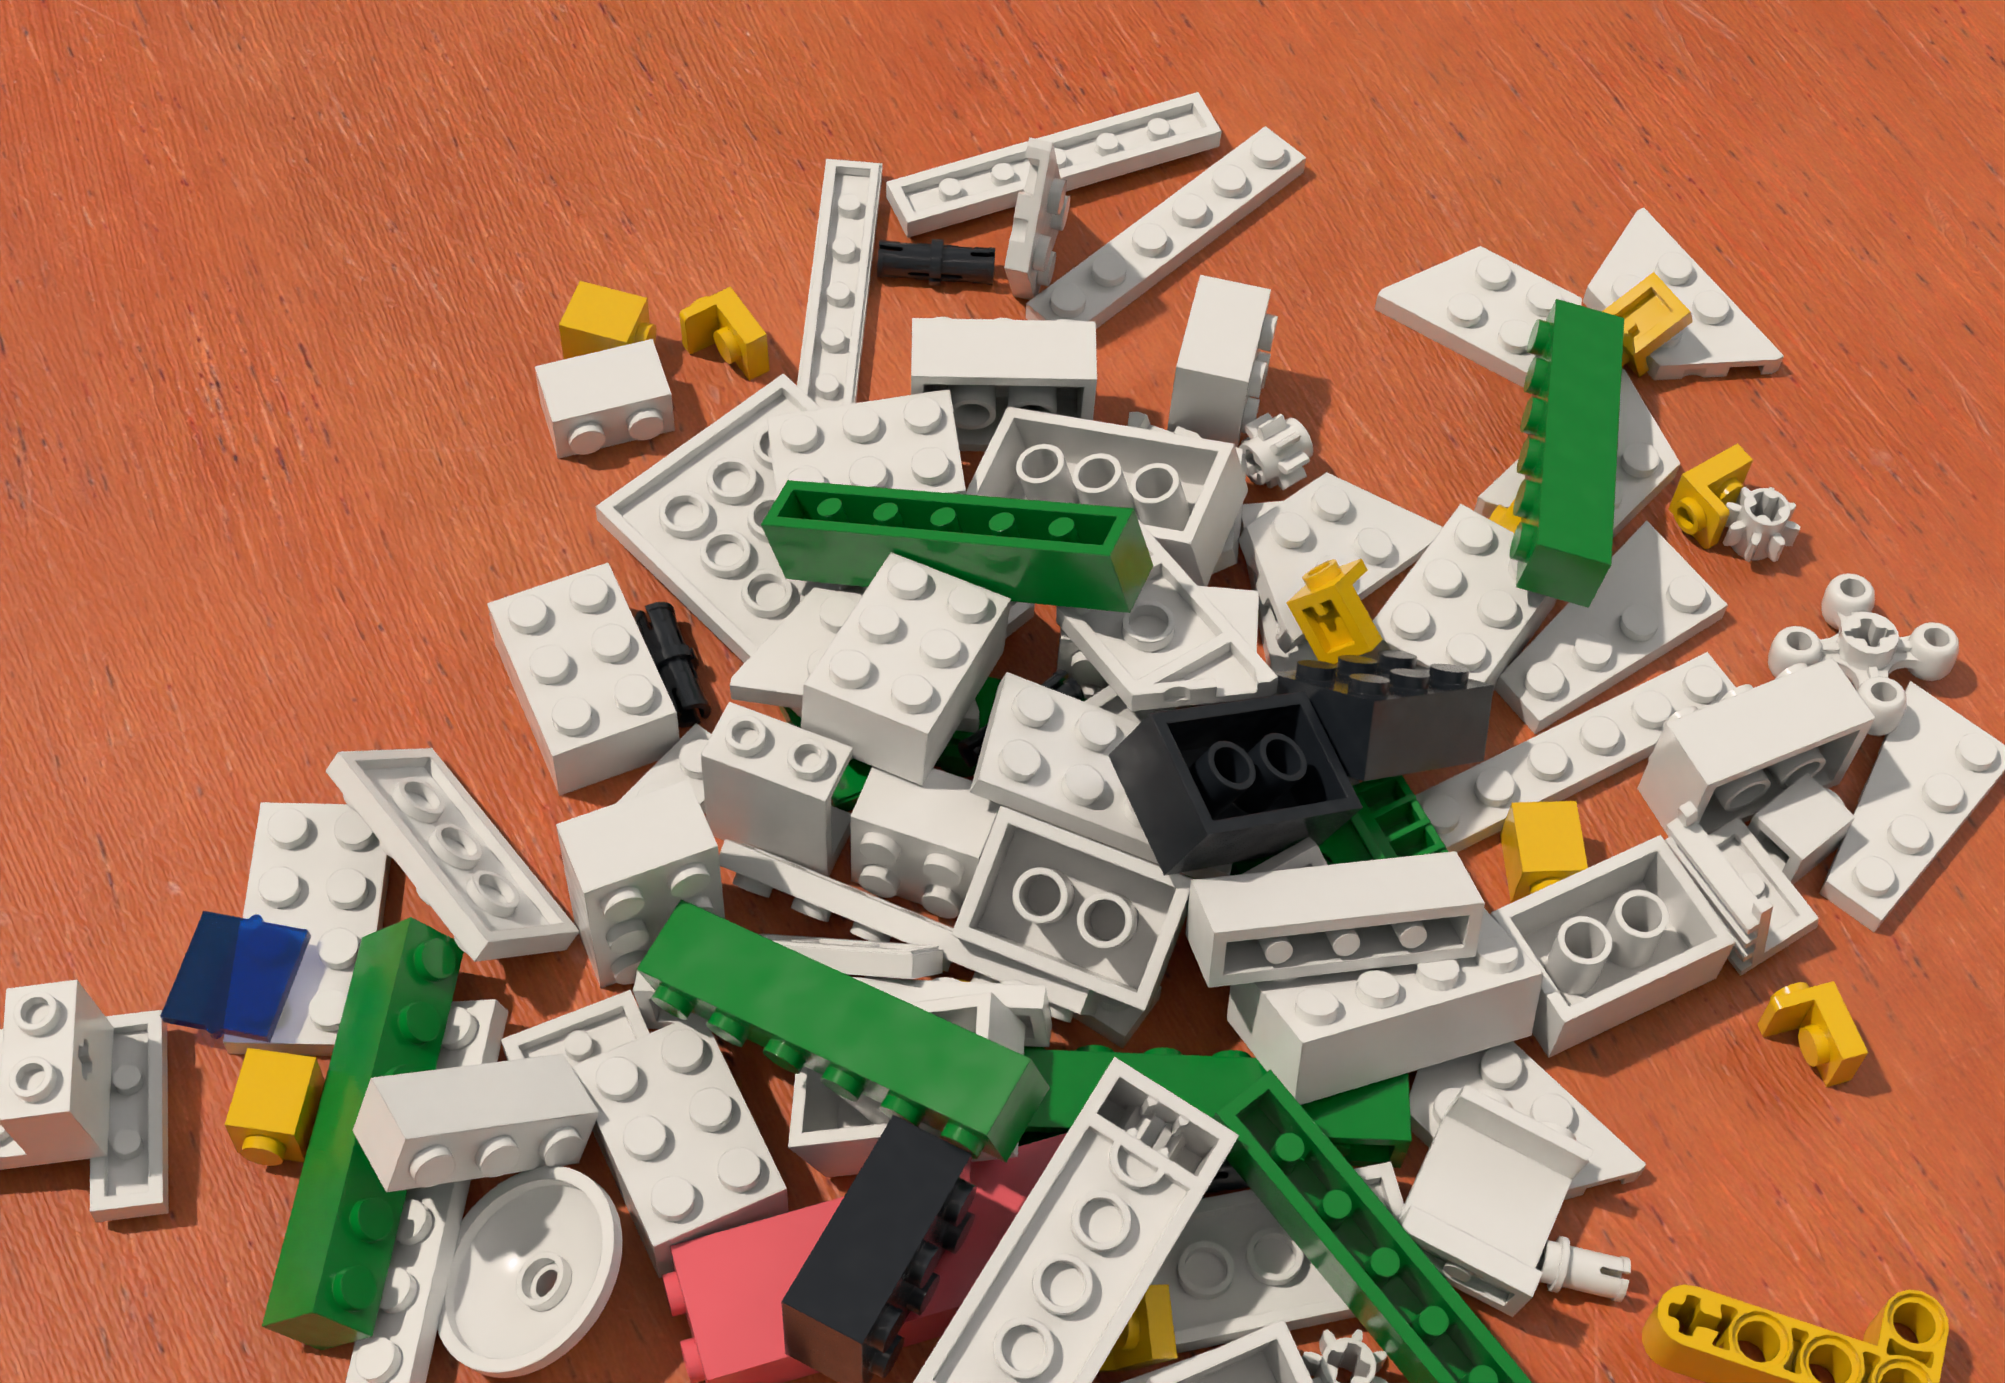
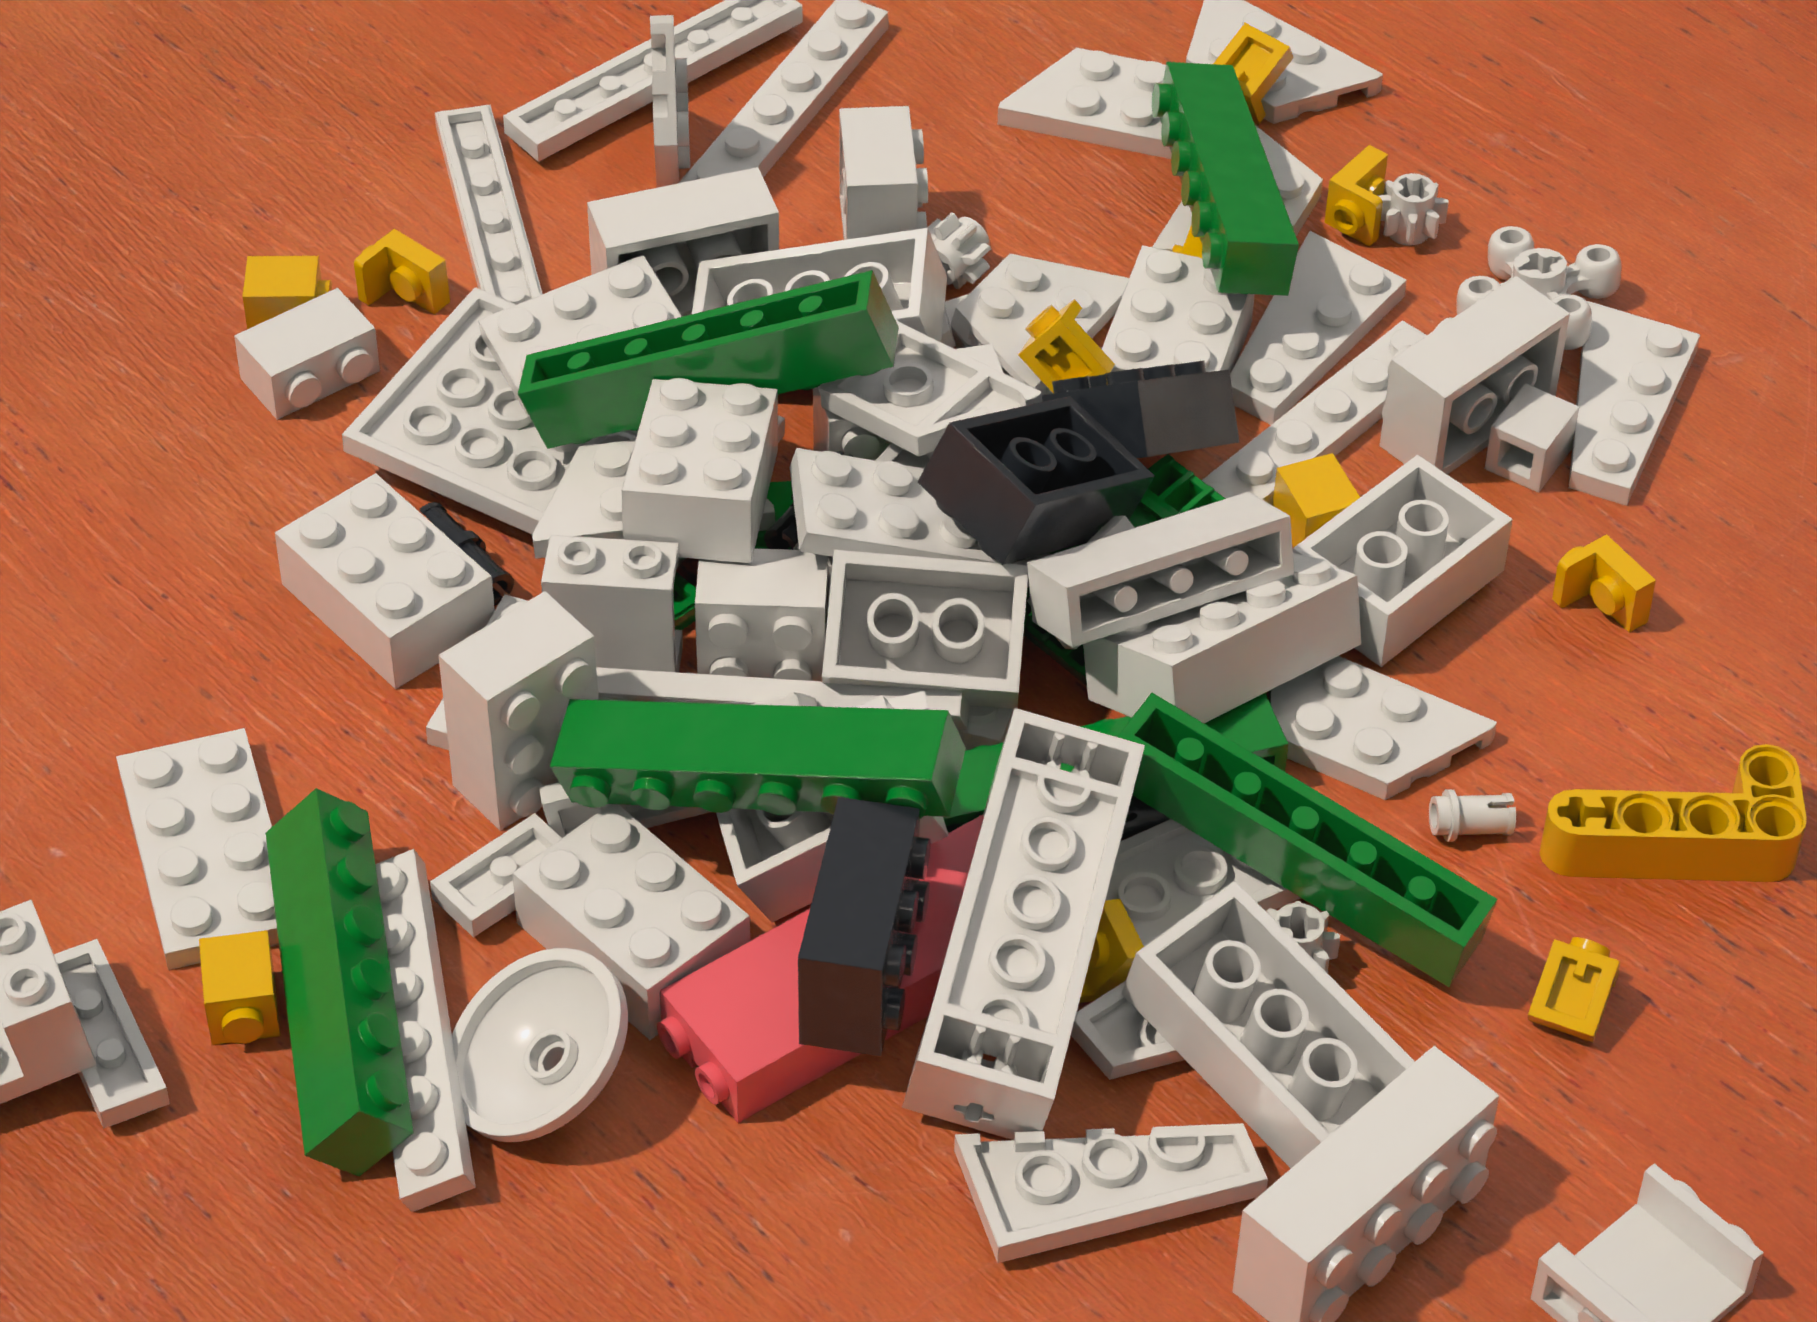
camera: 15 degrees left, 10 degrees down
(236, 976) = (158, 892): clear blue piece -> none
(452, 853) = (328, 746): white plate -> none
(474, 1121) = (444, 928): white brick -> none
(936, 262) = (575, 174): black pin -> none
(1491, 1196) = (1377, 756): white panel -> none
(1741, 887) = (1504, 481): white plate -> none

